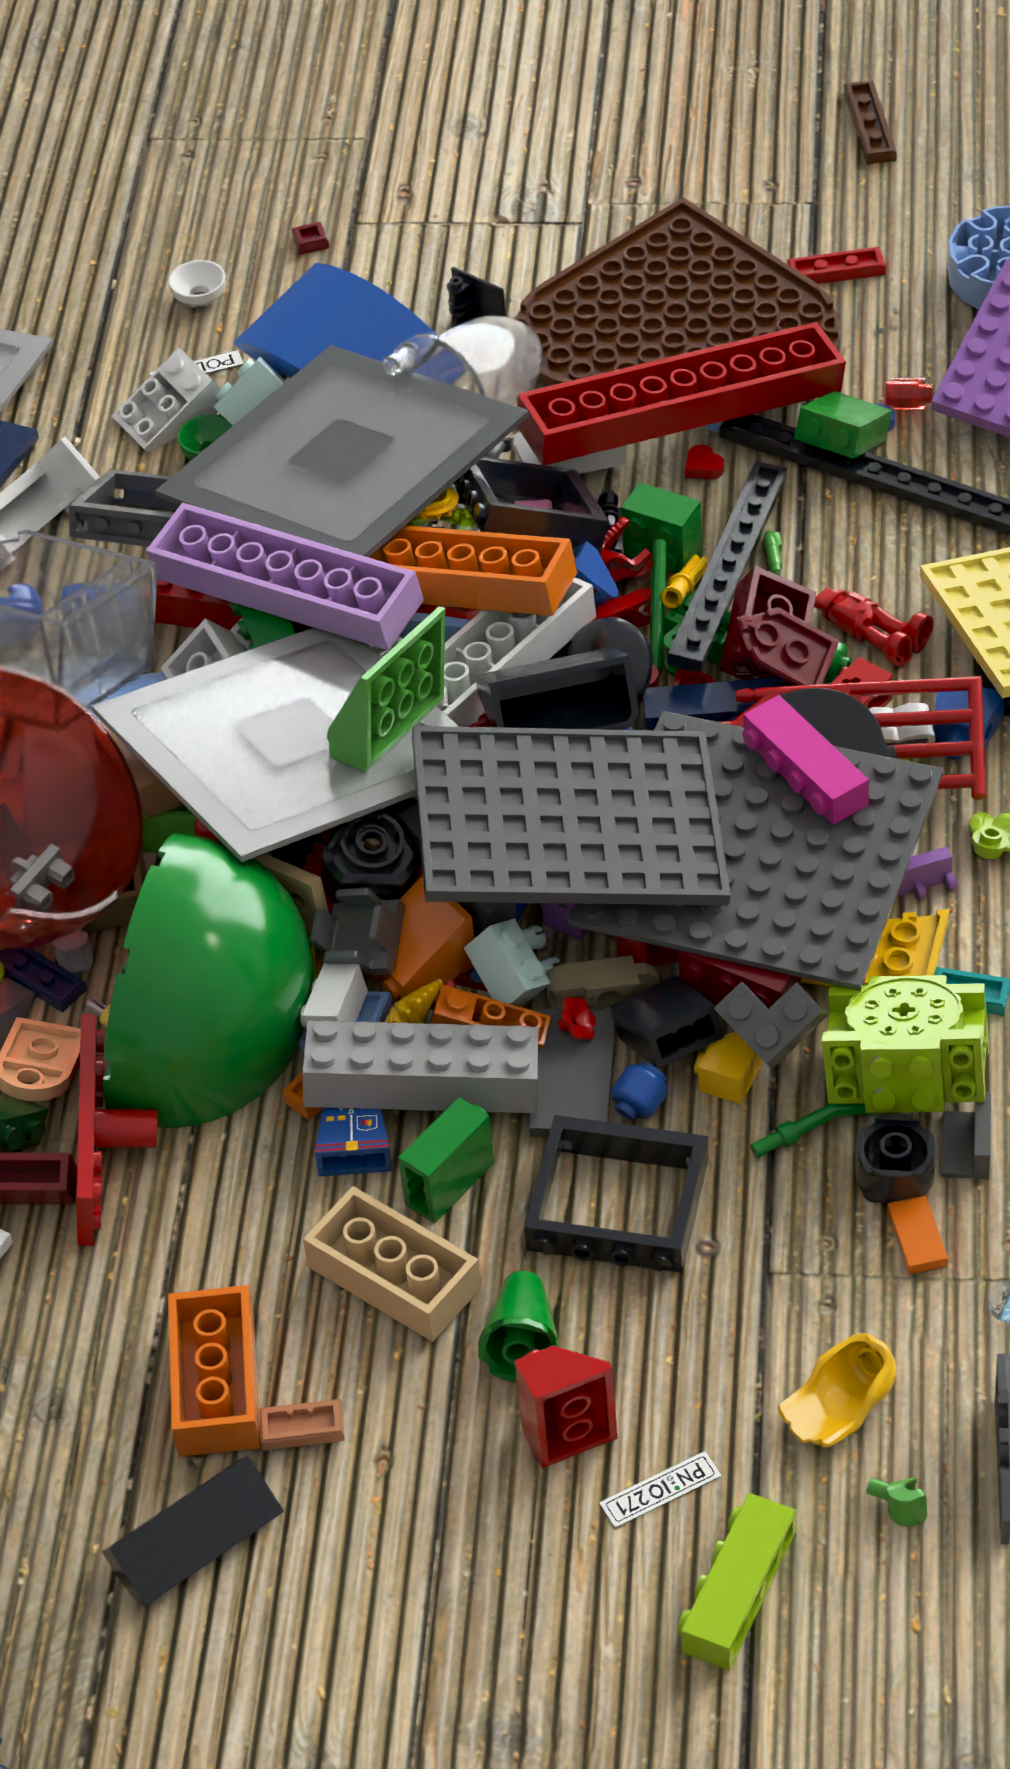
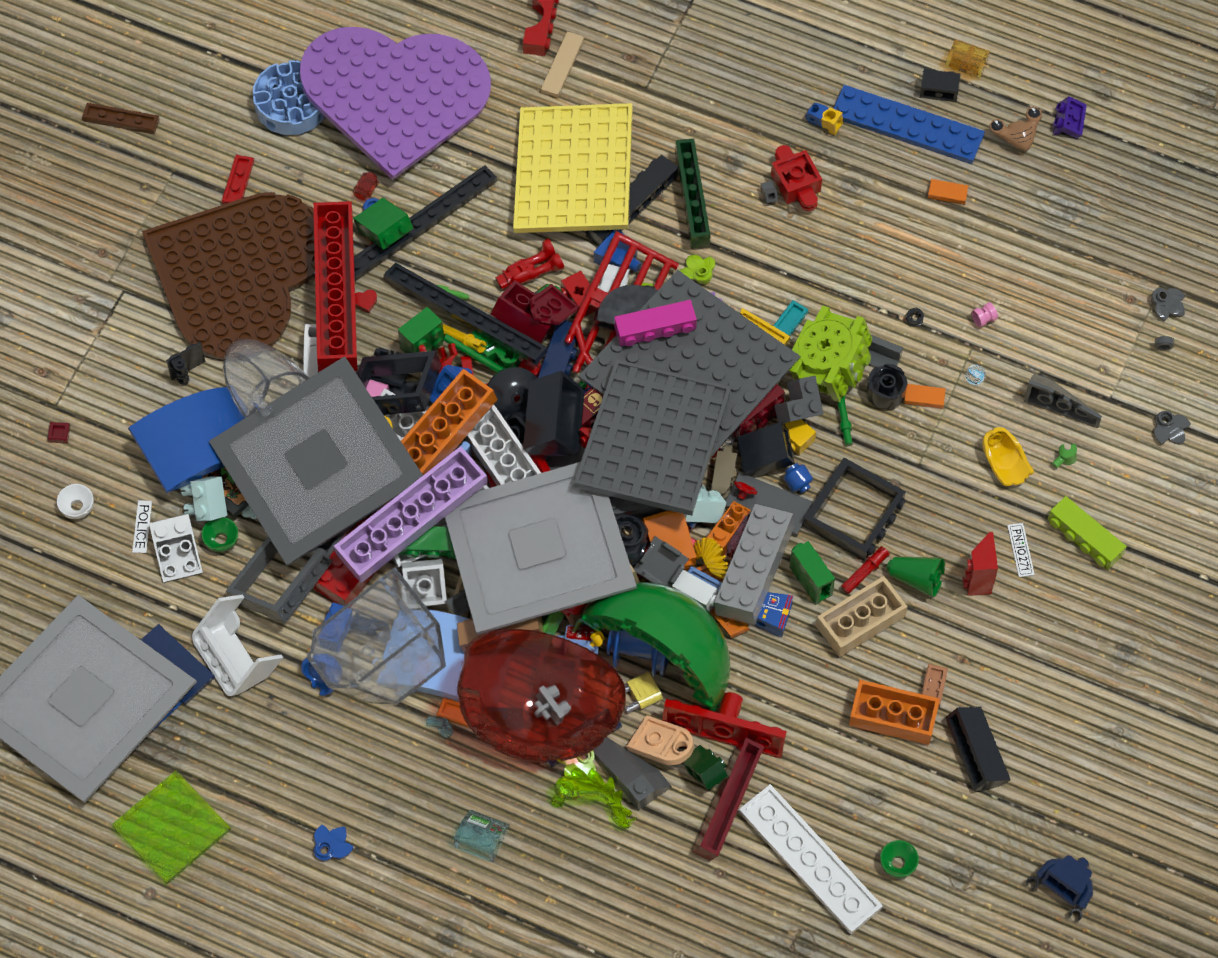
camera: 75 degrees left, 15 degrees up
(391, 696) = (547, 484): bright green slope -> none
(517, 1254) = (872, 563): none -> red axle

